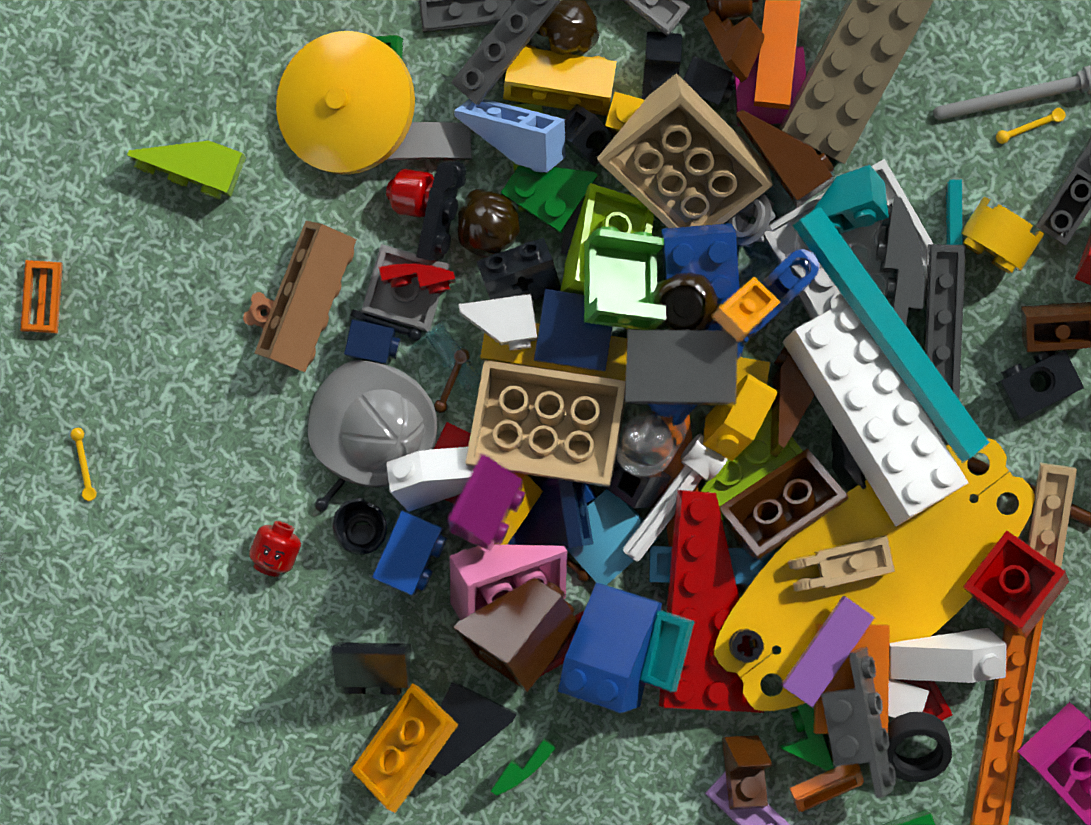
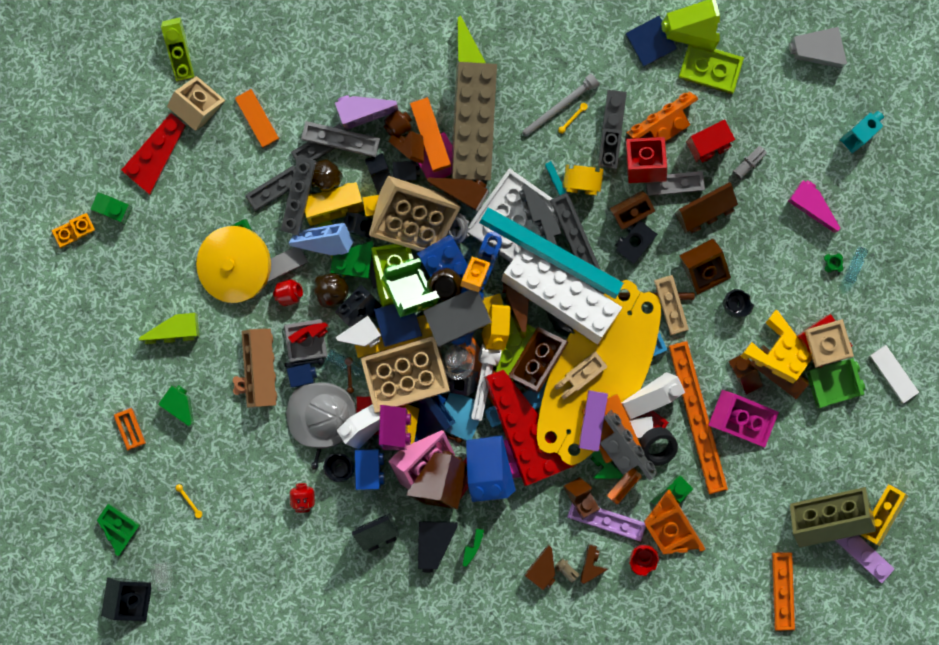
camera: 25 degrees left, 0 degrees up
(142, 294) = (178, 404): none -> green slope
(404, 747) = (410, 564): light orange tile -> none
(441, 210) = (305, 295): black hinge -> none
(667, 651) = (515, 457): teal tile -> none
(755, 651) = (546, 435): black bush -> none
(855, 200) = (504, 195): teal slope -> none
(1016, 583) = (669, 344): red slope -> none

